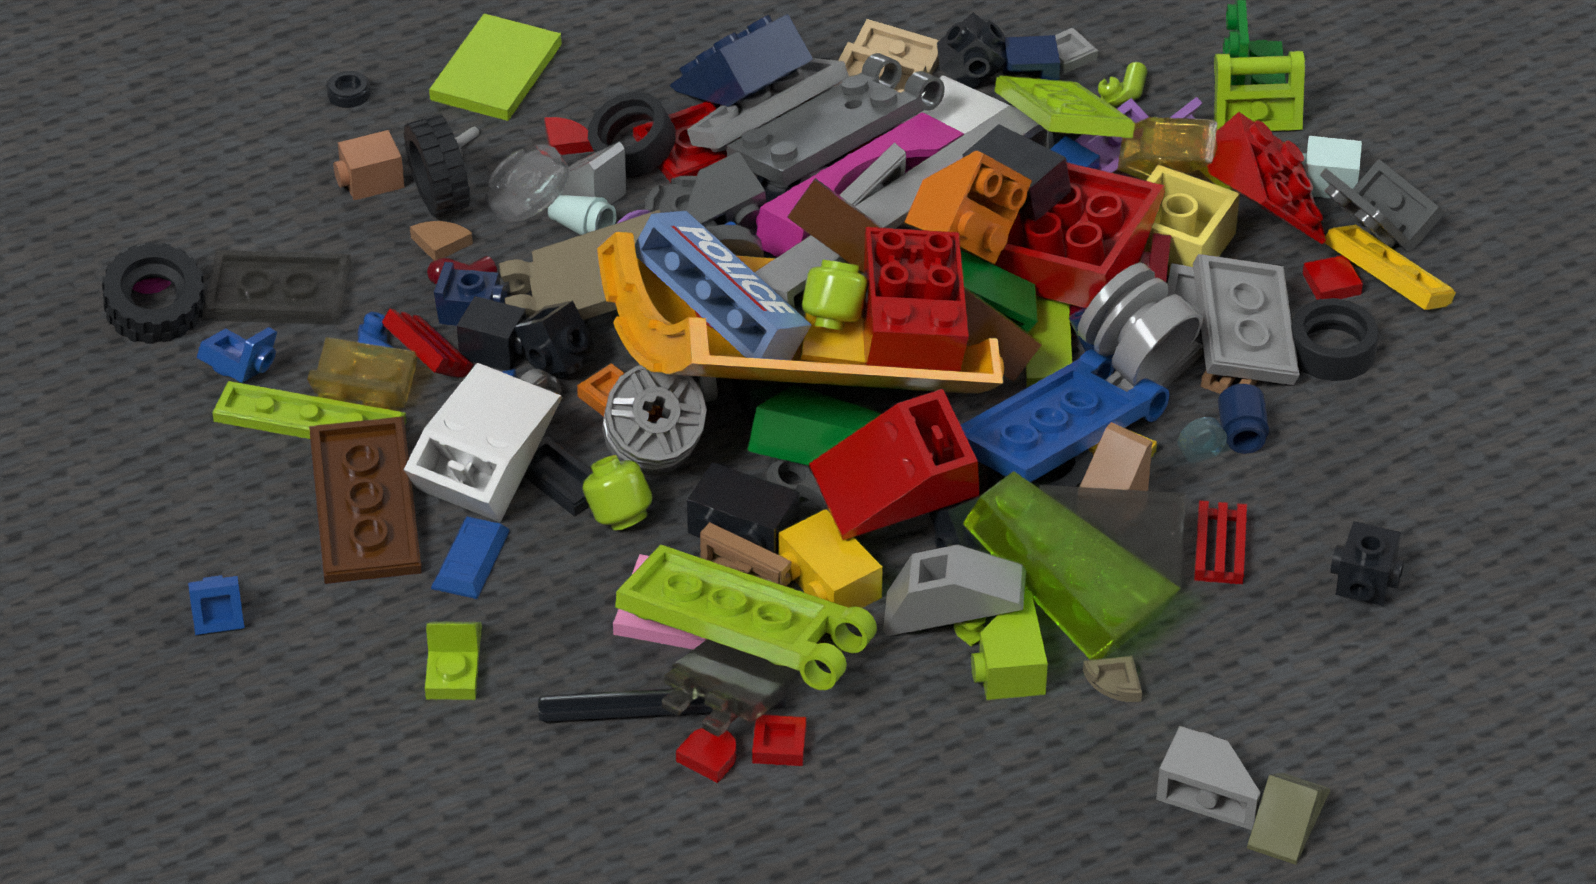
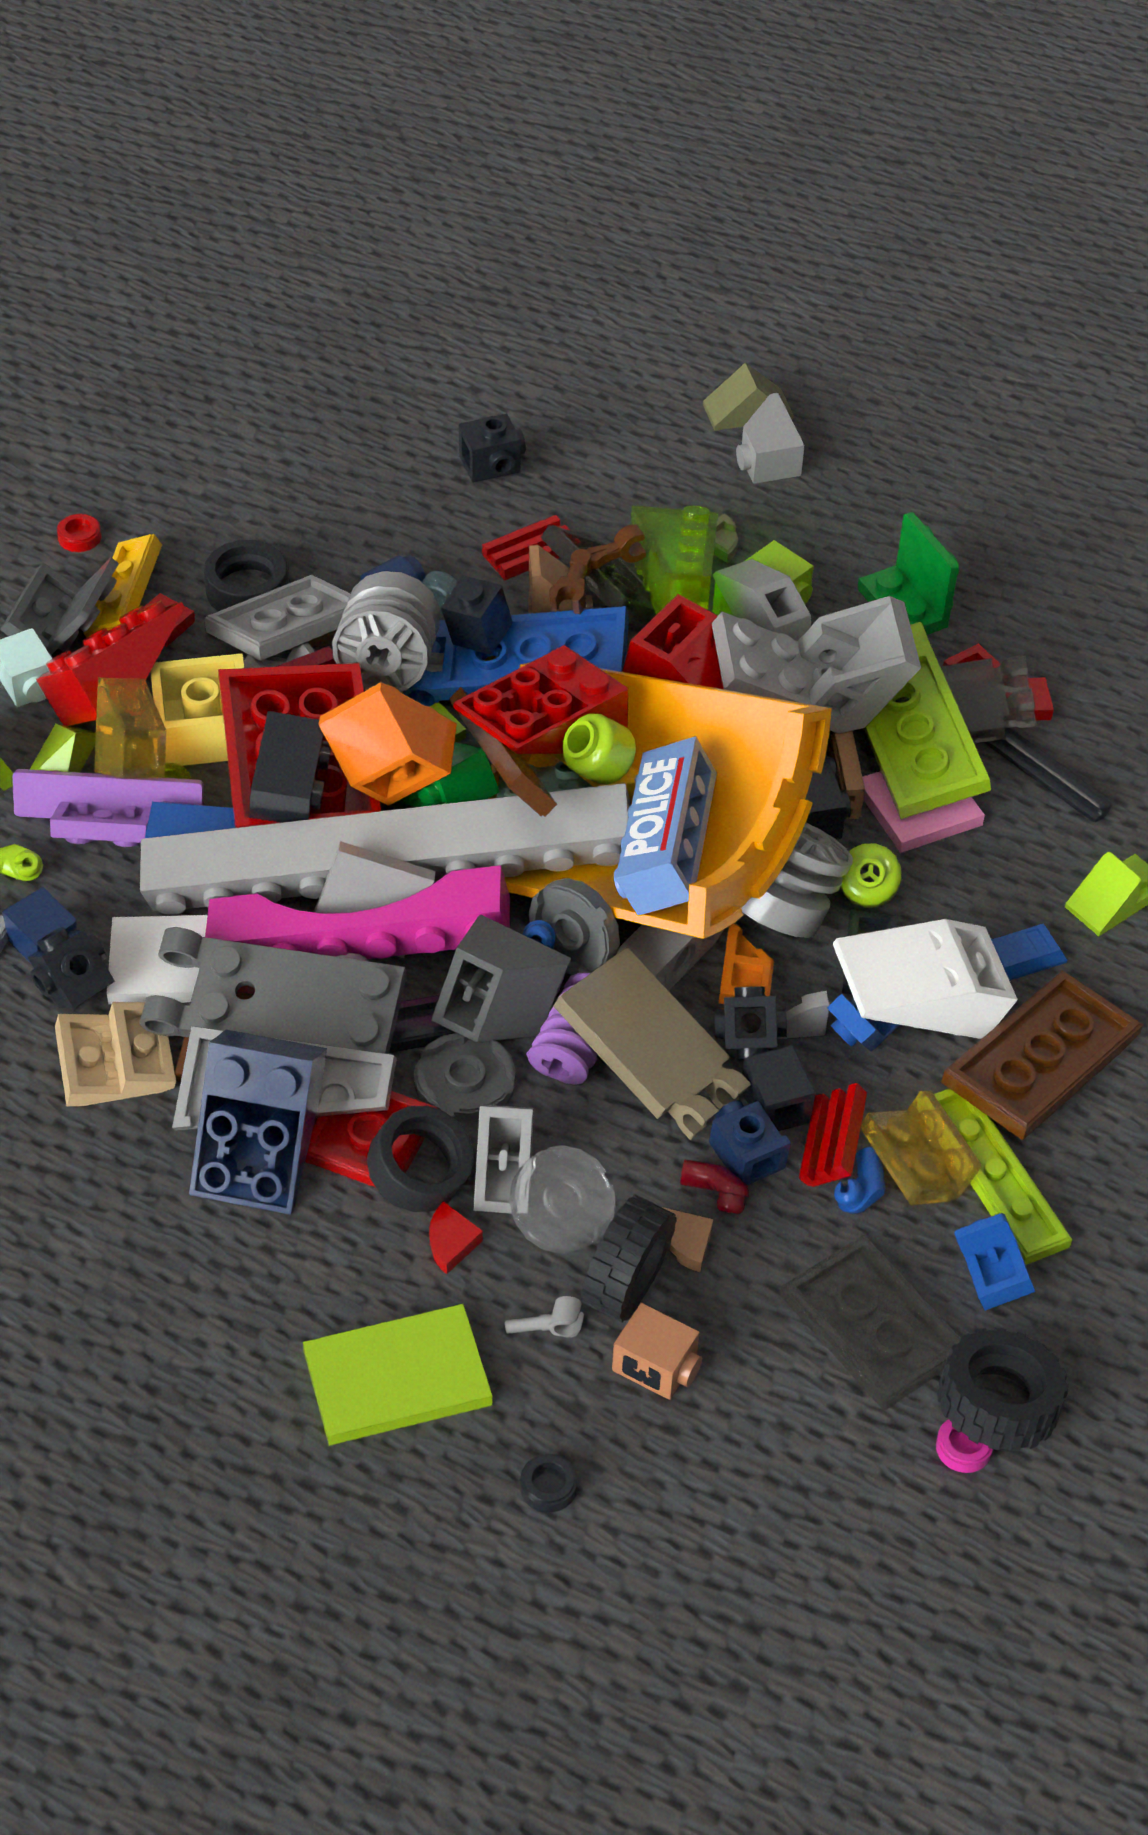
camera: 130 degrees left, 5 degrees up
(582, 213) = (555, 1124): light aqua cone -> none
(837, 519) = (857, 678): none -> light grey bracket
(907, 741) = (921, 578): none -> green bracket
(1064, 106) = (124, 834): lime tile -> none
(1104, 470) = (582, 561): none -> reddish brown piece
(1106, 381) = (477, 615): none -> black brick
(1495, 281) = (79, 533): none -> red tile

